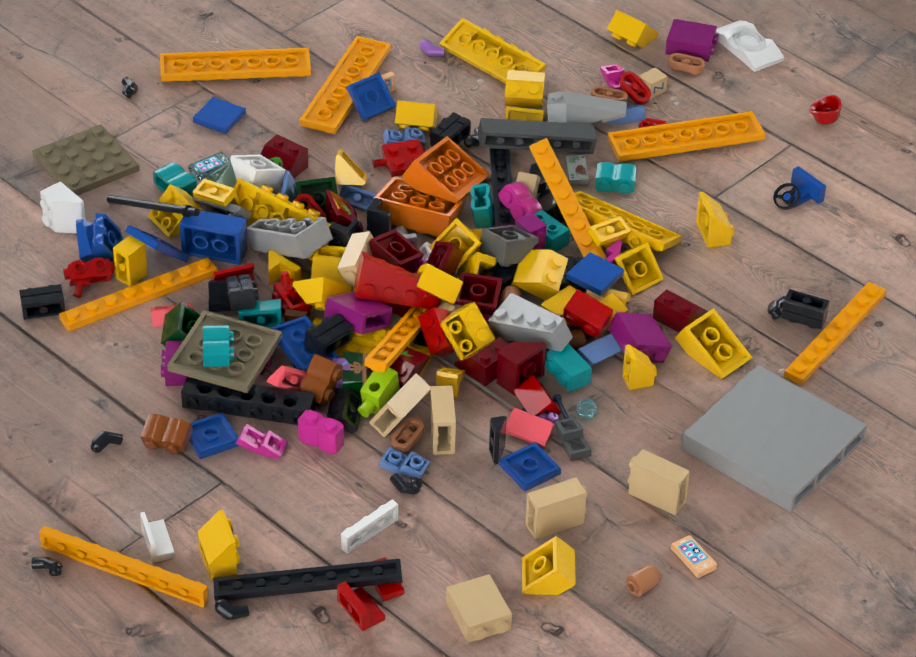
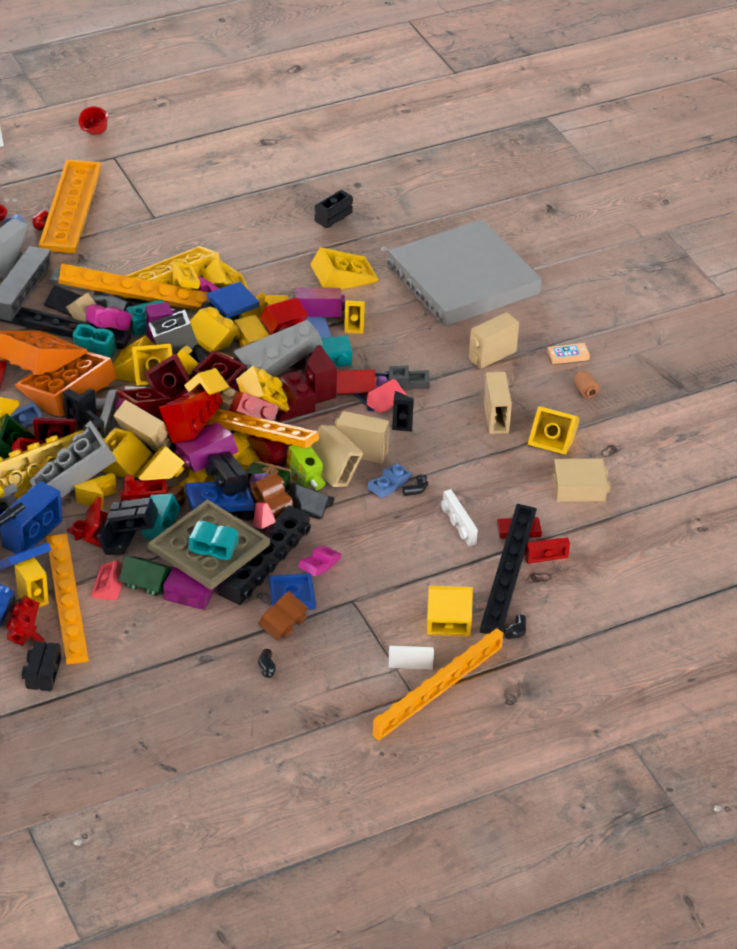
camera: 70 degrees left, 0 degrees up
(47, 563) = (407, 735): black arm -> none
(321, 431) = (331, 517): dark pink brick -> none
(407, 435) = (364, 472): nougat plate -> none
(450, 377) = (308, 420): yellow slope -> none
(529, 466) = (430, 411): blue tile -> none
(586, 409) = (378, 359): clear light blue plate -> none
(615, 177) = (102, 257): teal brick -> none
(676, 311) = (294, 275): dark red slope -> none
(713, 222) = (198, 223): yellow slope -> none
(775, 306) = (314, 227): black arm -> none
(804, 188) = (180, 166): blue piece -> none
(834, 333) = (361, 209): light orange plate -> none

